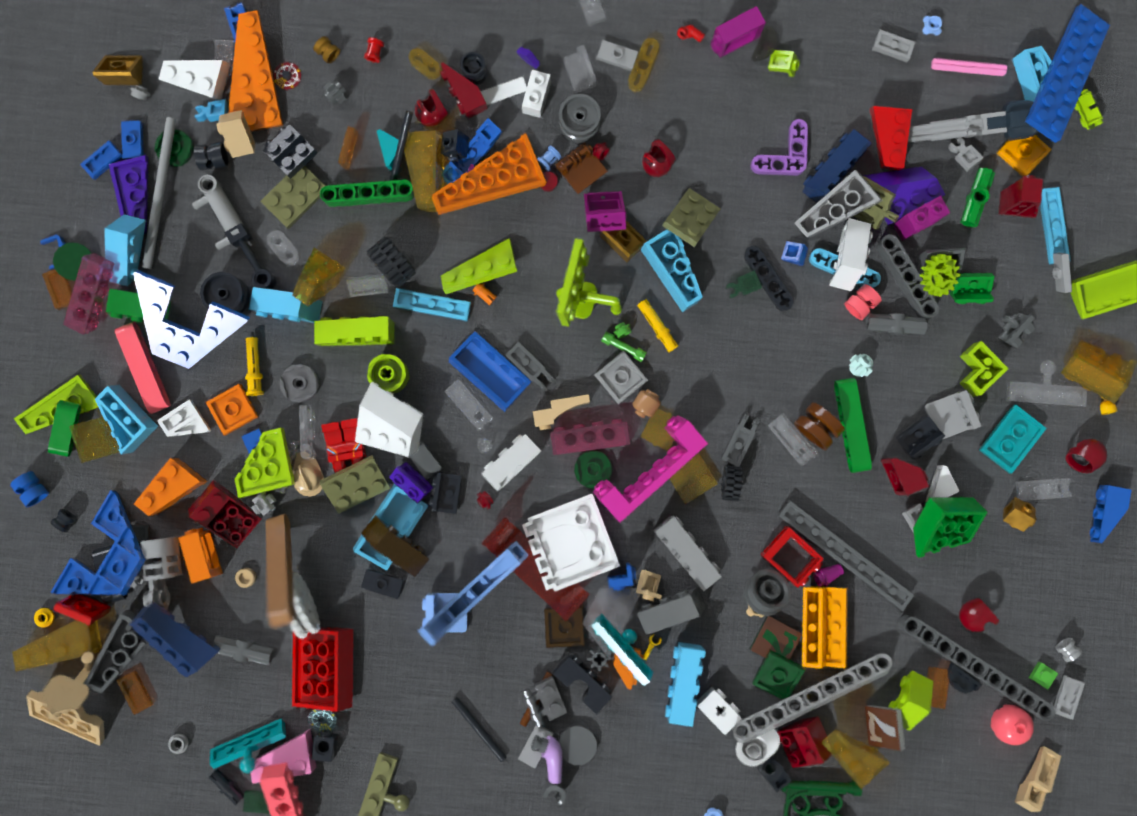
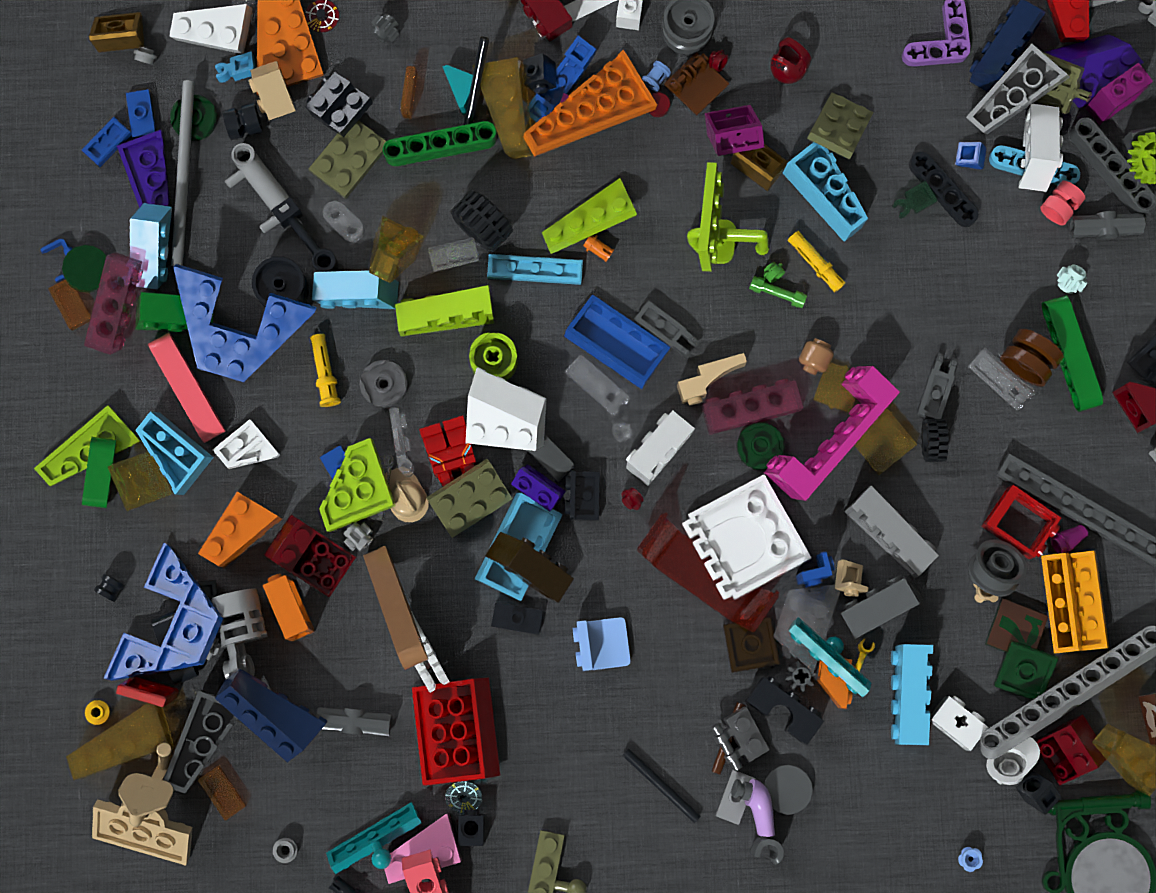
camera: 10 degrees left, 5 degrees down
(29, 489) = (60, 550): blue wheel -> none
(232, 409) = (303, 426): orange tile -> none
(245, 577) = (345, 632): tan tile -> none
(430, 111) = (506, 35): dark red helmet -> none
(473, 593) = (637, 608): medium blue arch -> none
(621, 377) = (780, 329): light grey plate -> none

